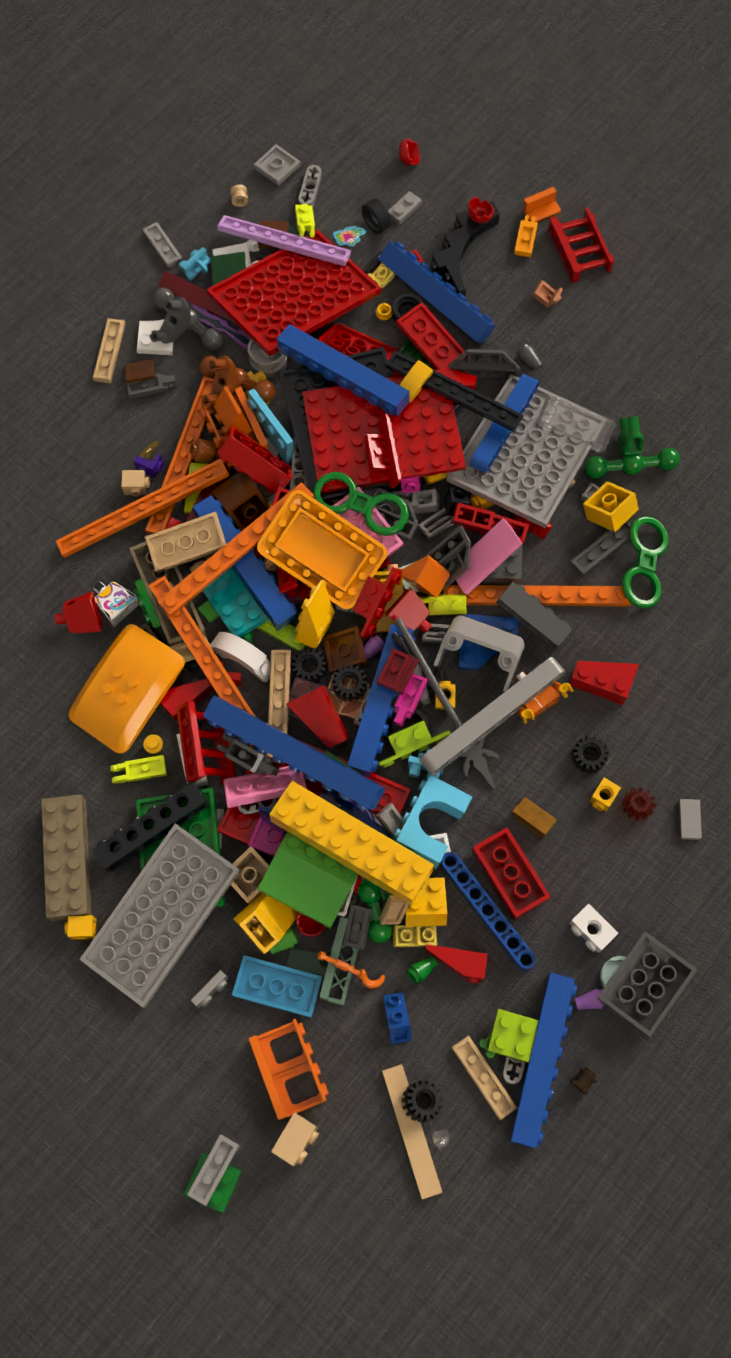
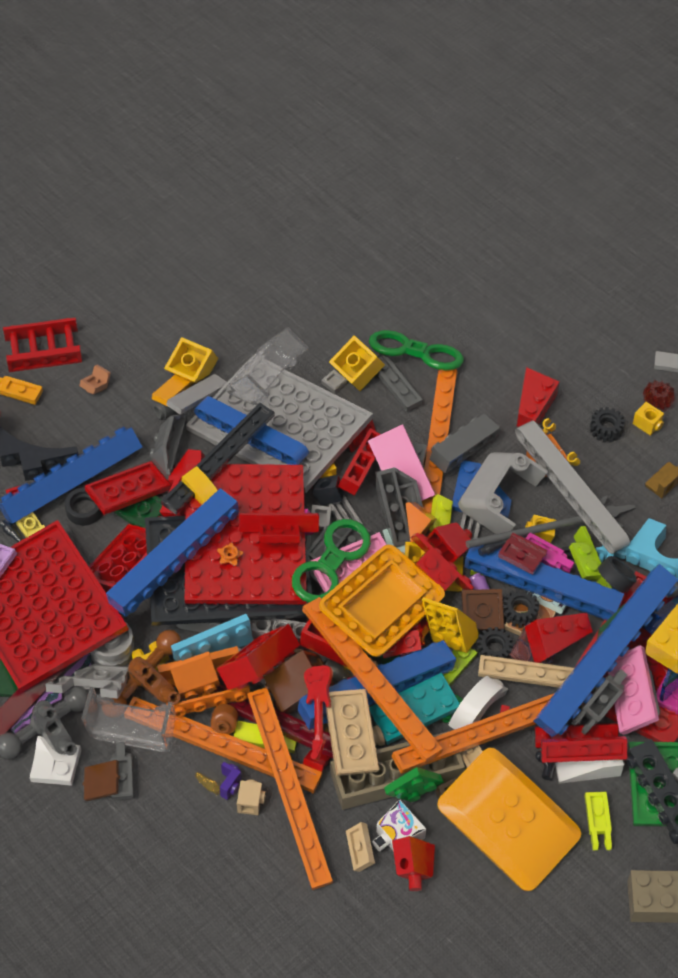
camera: 85 degrees left, 15 degrees down
(91, 575) = (360, 847): none -> tan plate
(109, 350) = (60, 816): tan tile -> none
(153, 744) = (570, 804): yellow plate -> none
(188, 375) = (129, 724): none -> clear windscreen
(189, 692) = (522, 760): red slope -> none
(222, 504) = (318, 682): none -> red piece
(227, 343) = (106, 677): none -> light grey wing
(351, 413) = (229, 549): none -> orange plate
(383, 759) = (617, 574): none -> black tyre
(384, 308) = (78, 525): yellow plate -> none
(547, 376) = (196, 394): none -> light grey tile
(551, 357) = (171, 388): none -> light orange tile
(584, 365) = (191, 361): none -> yellow slope
(630, 445) = (309, 315): green connector -> none

